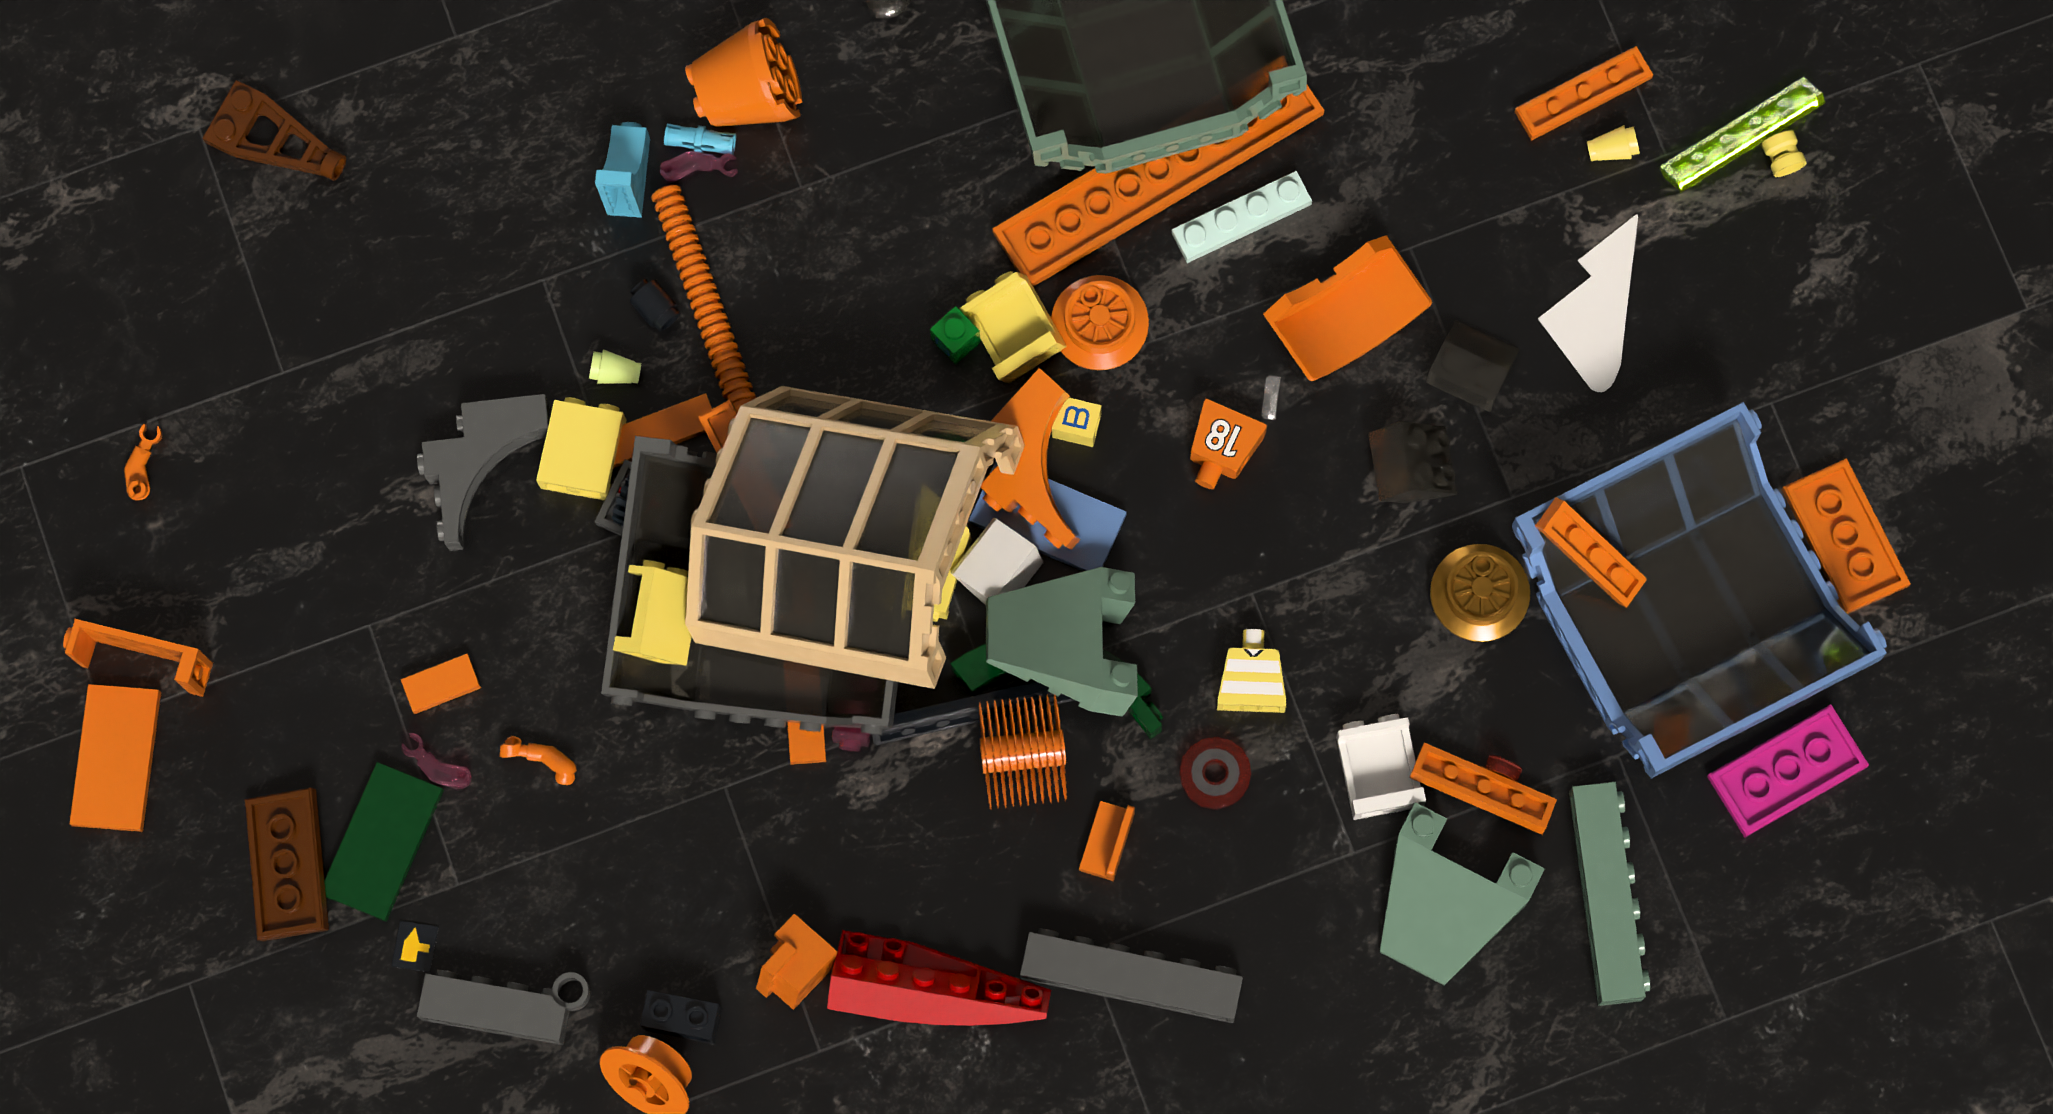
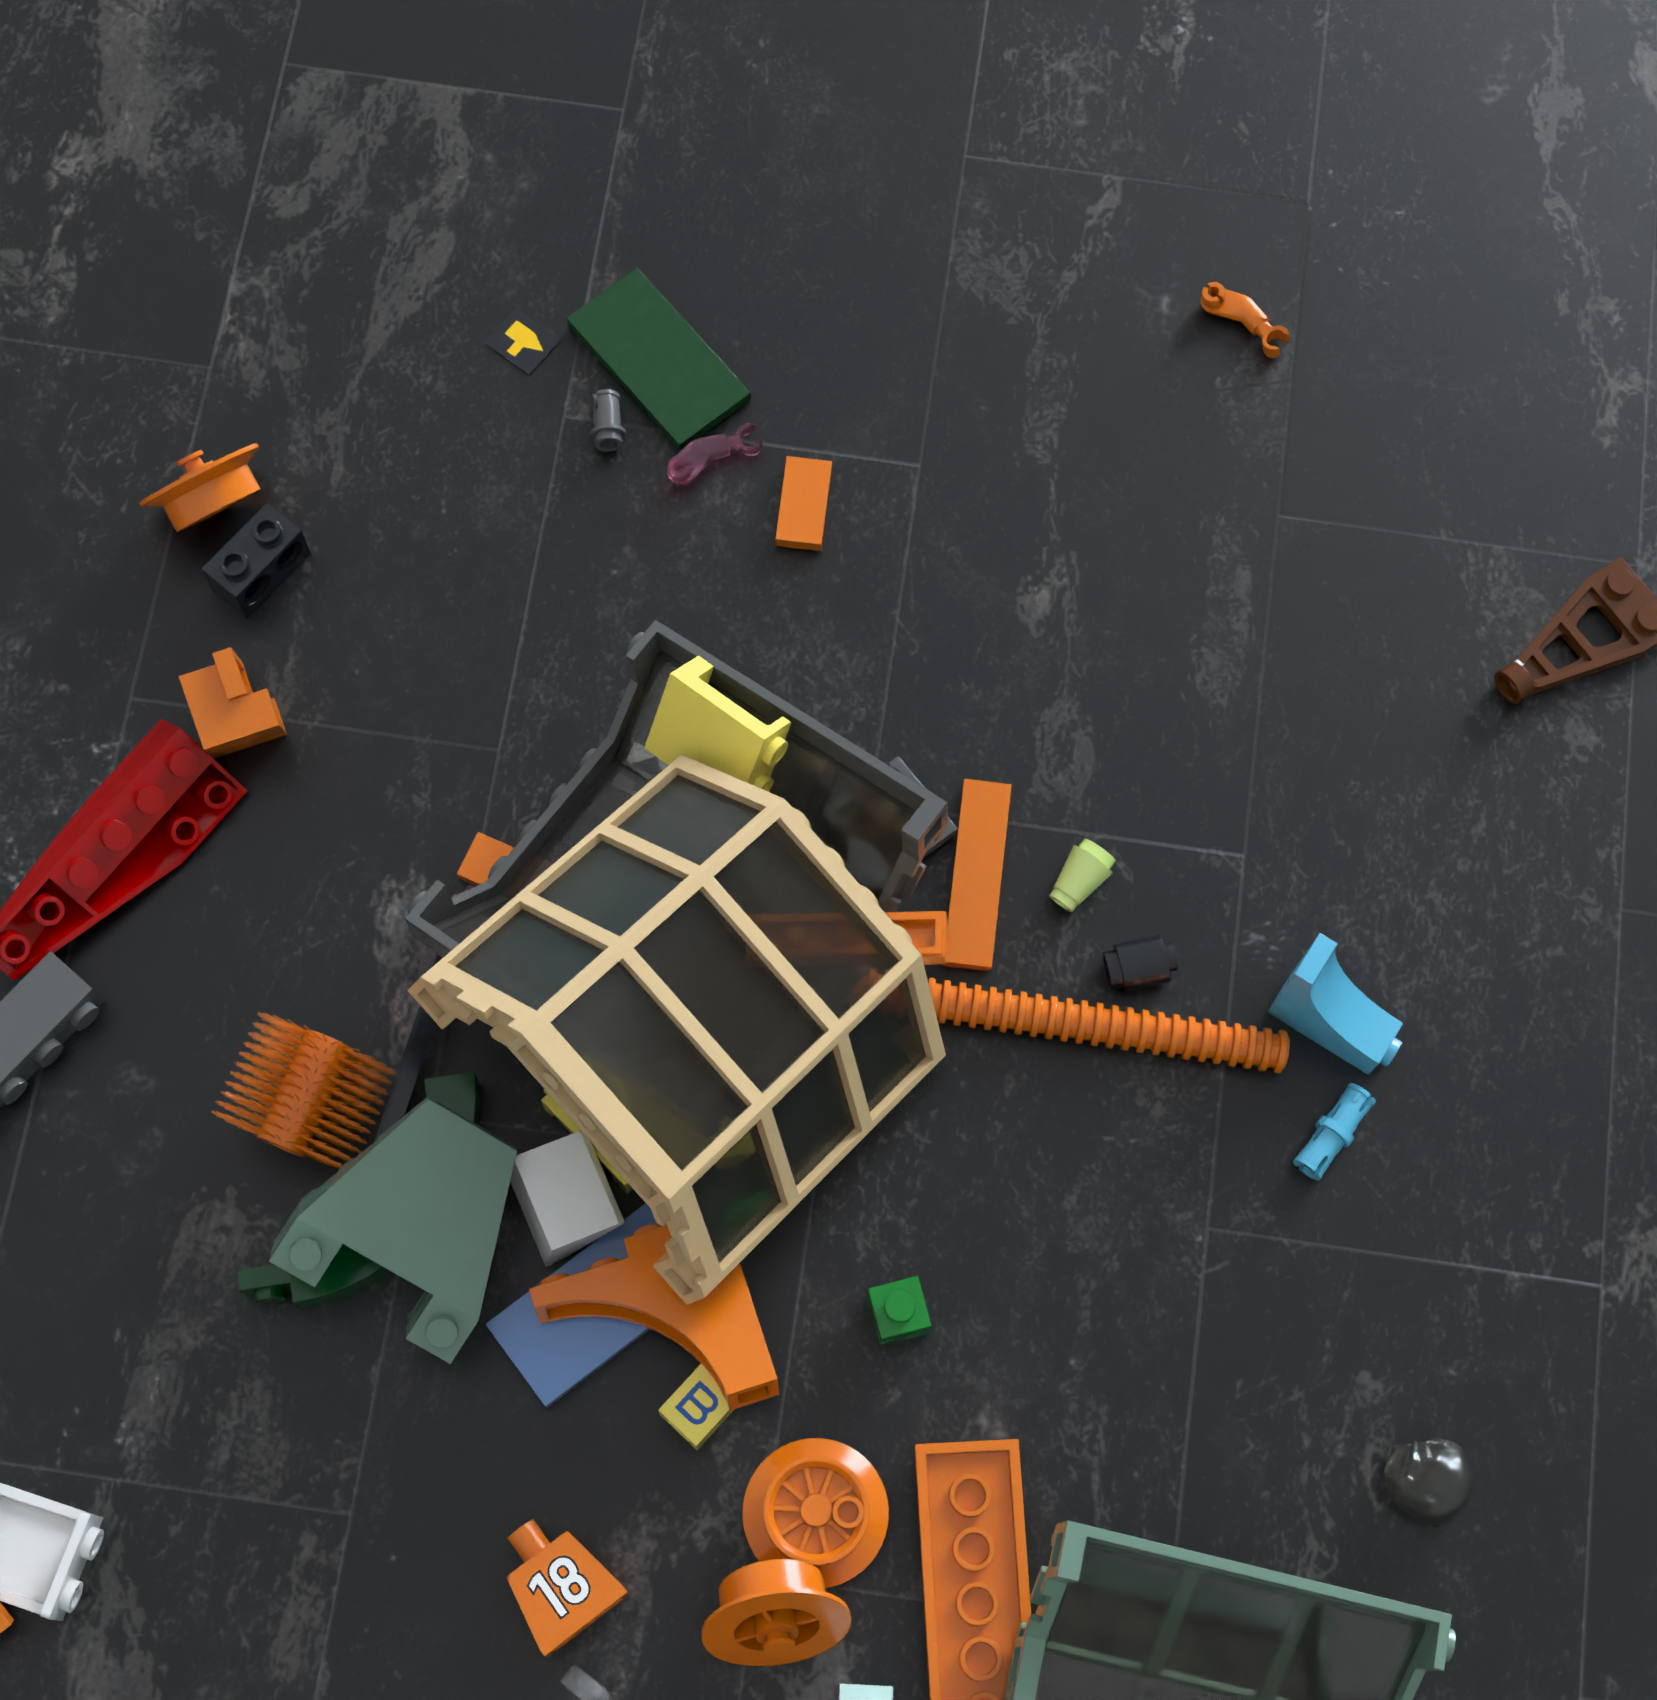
camera: 110 degrees right, 5 degrees down
(115, 758) = (915, 145): orange tile -> none
(193, 666) = (972, 250): orange panel -> none
(286, 864) = (690, 251): reddish brown tile -> none
(449, 847) = (607, 429): none -> dark grey pin
(461, 464) = (1051, 642): dark grey arch -> none
(500, 1009) = (391, 384): dark grey hinge -> none
(546, 754) = (650, 574): orange arm -> none
(580, 448) = (1001, 785): light yellow panel -> none
(692, 161) = (1309, 1106): clear pink arm -> none
(746, 79) = (1383, 1225): orange cone -> none
(1013, 326) = (869, 1394): light yellow panel -> none
(1107, 840) = (152, 1152): orange panel -> none
(1170, 308) = (774, 1615): none -> orange wheel
(1219, 752) = (126, 1315): clear red tile -> none
(1252, 677) = (235, 1446): torso -> none

